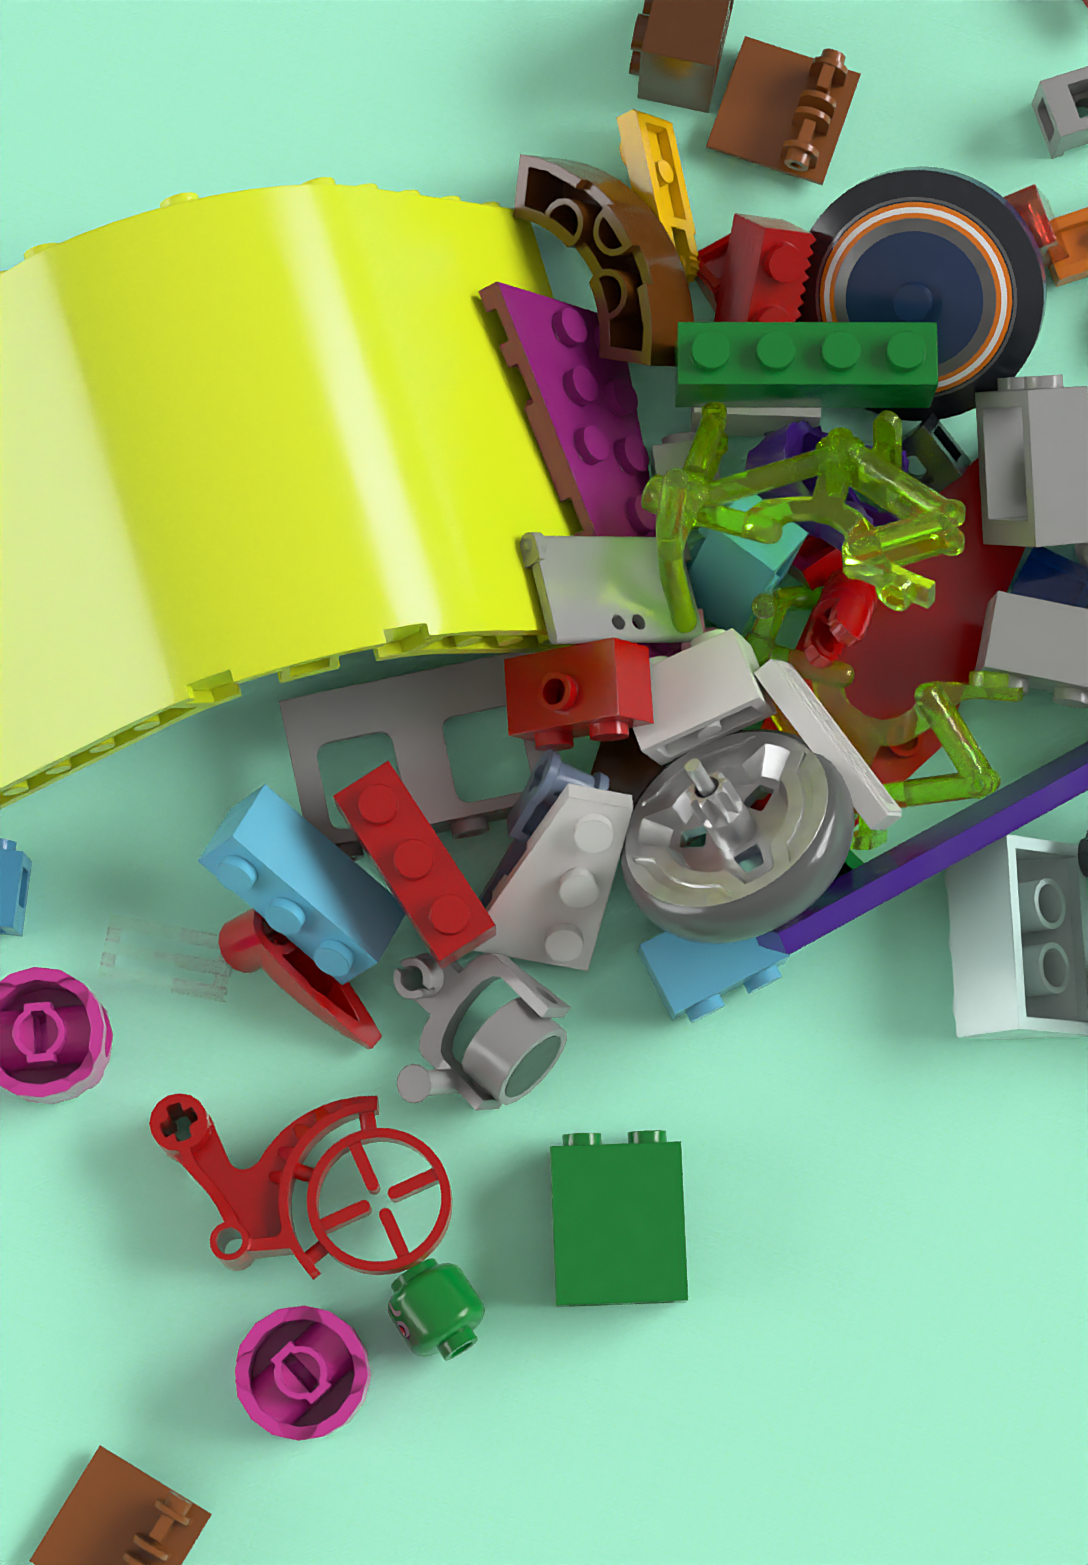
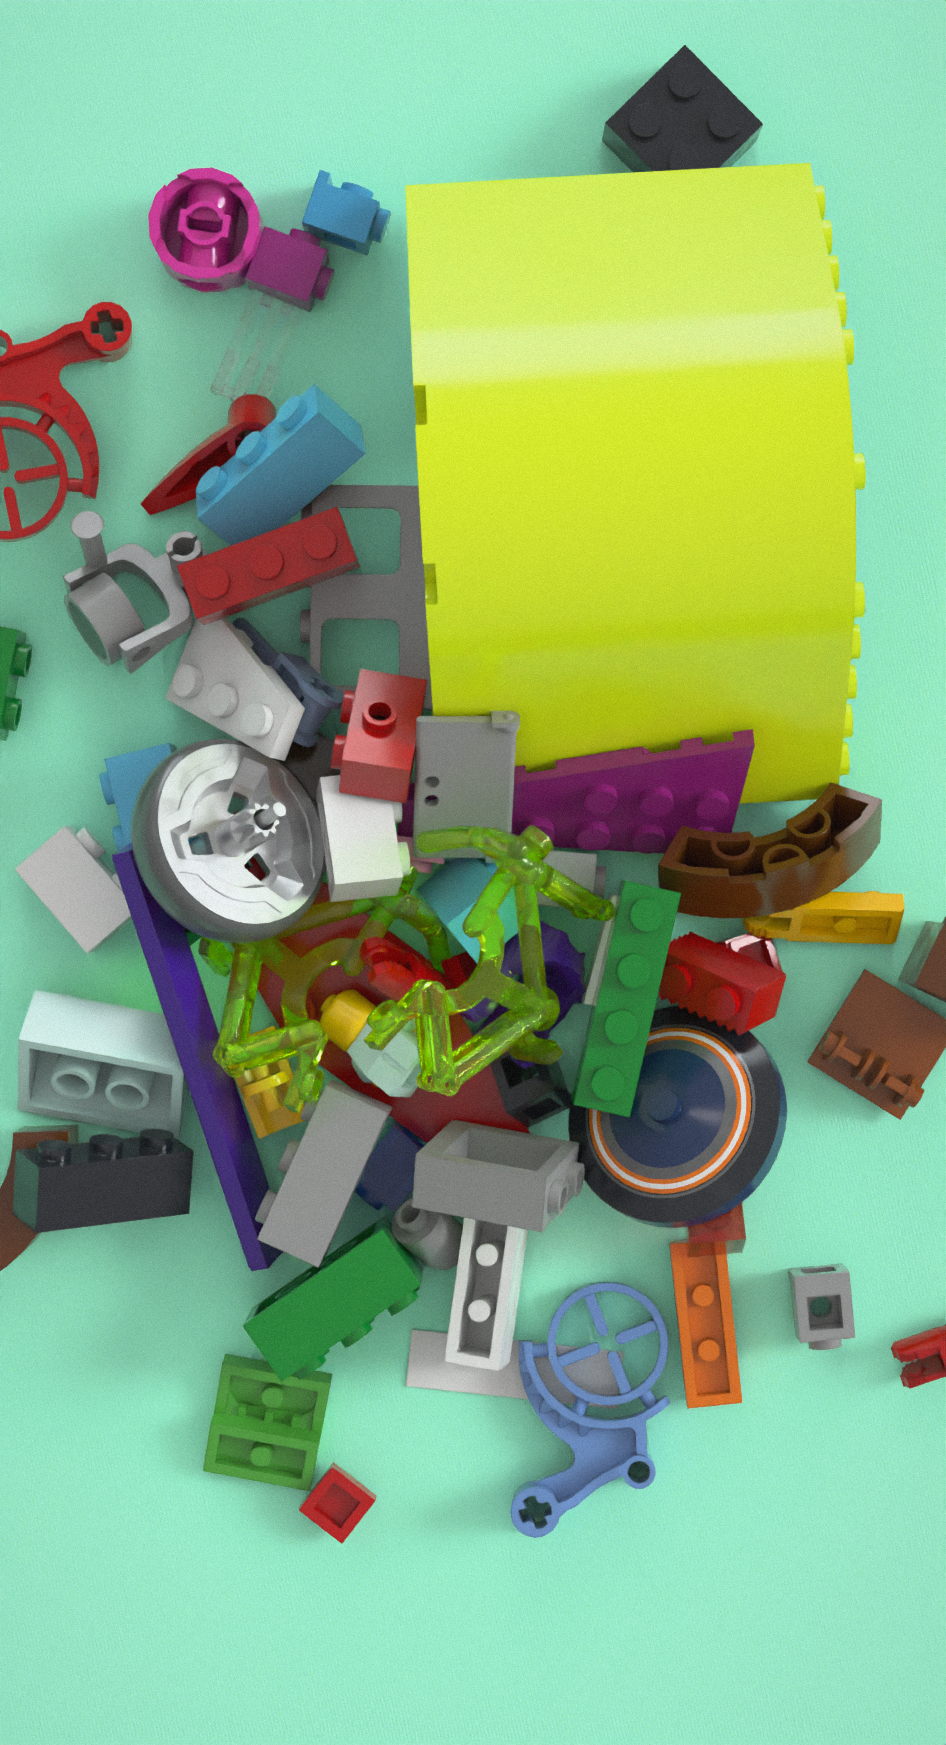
camera: 100 degrees right, 10 degrees up
(67, 932) = (290, 268): none -> magenta brick
(827, 739) = (290, 937): white tile -> none
(827, 1013) = (77, 886): none -> white brick
(919, 640) = (392, 1068): none -> light aqua piece
(1010, 741) = (265, 1092): none -> yellow hips

